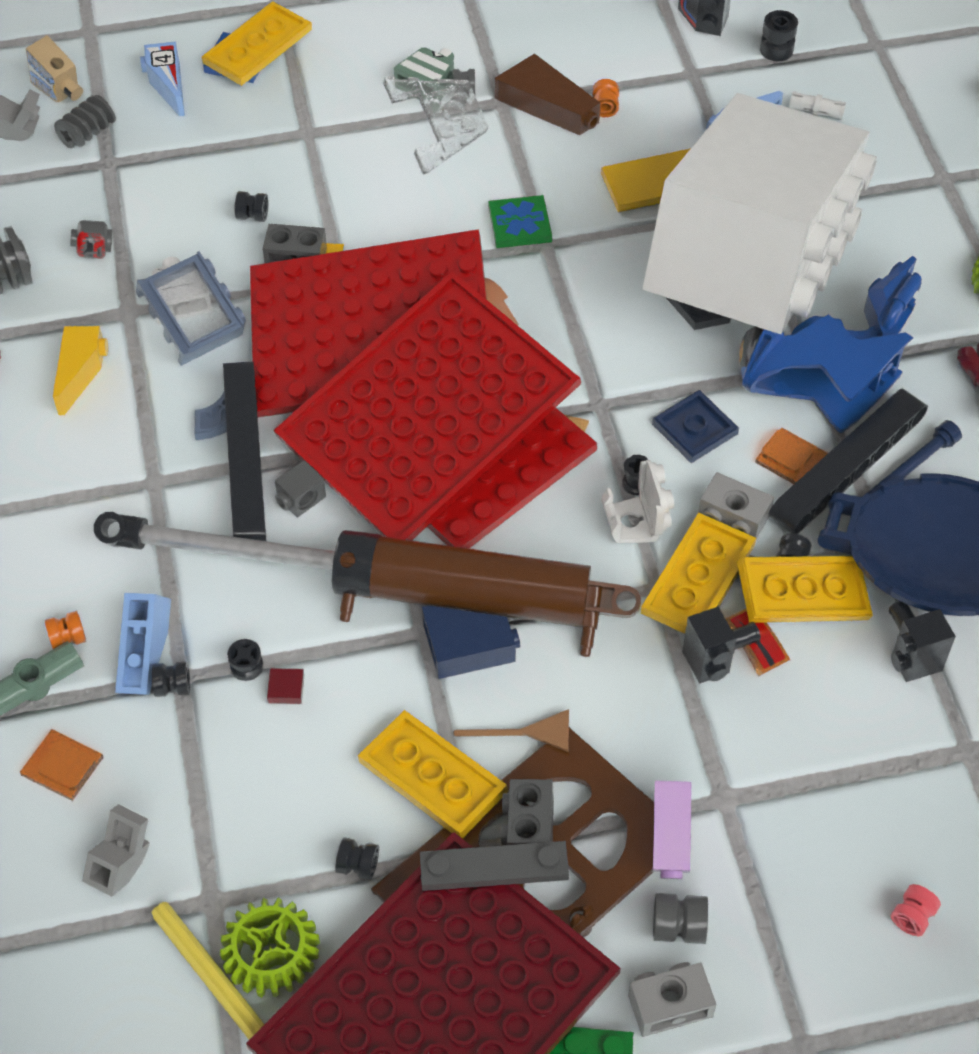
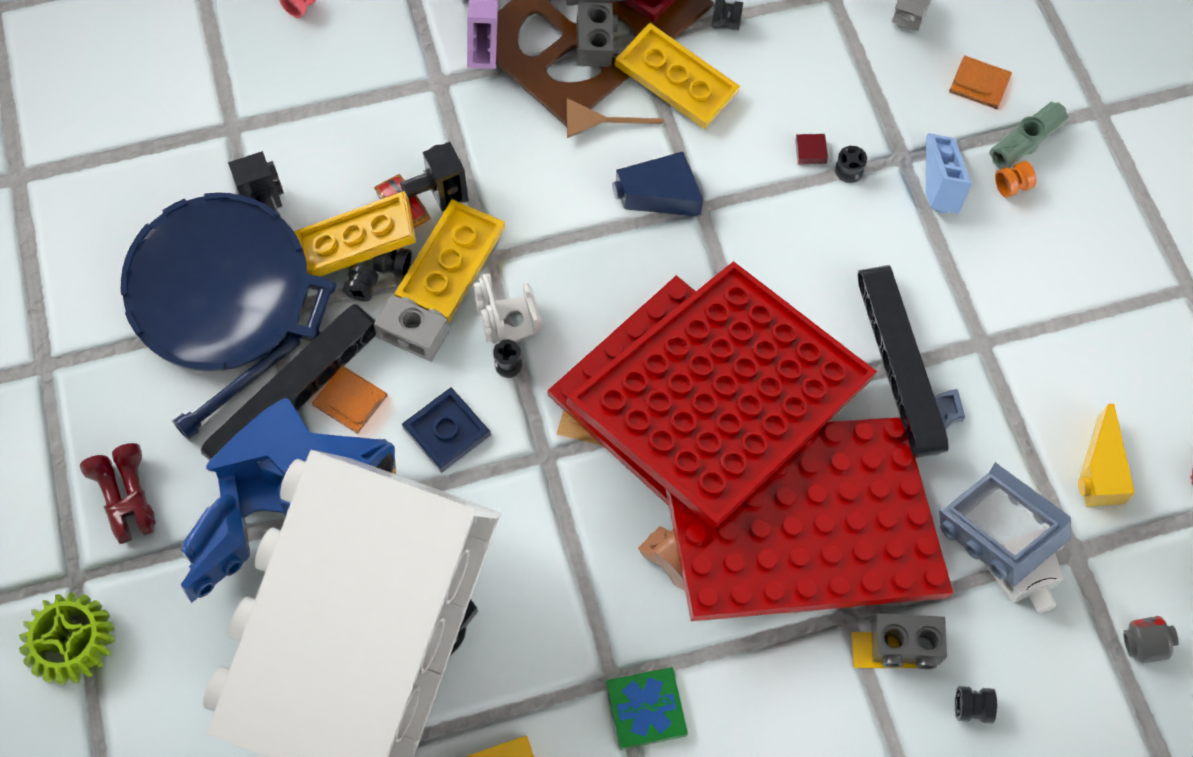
camera: 175 degrees right, 10 degrees up
(171, 679) = (910, 142): black wheel -> none
(300, 489) = (841, 322): dark grey brick -> none
(415, 573) = (717, 232): reddish brown piece -> none

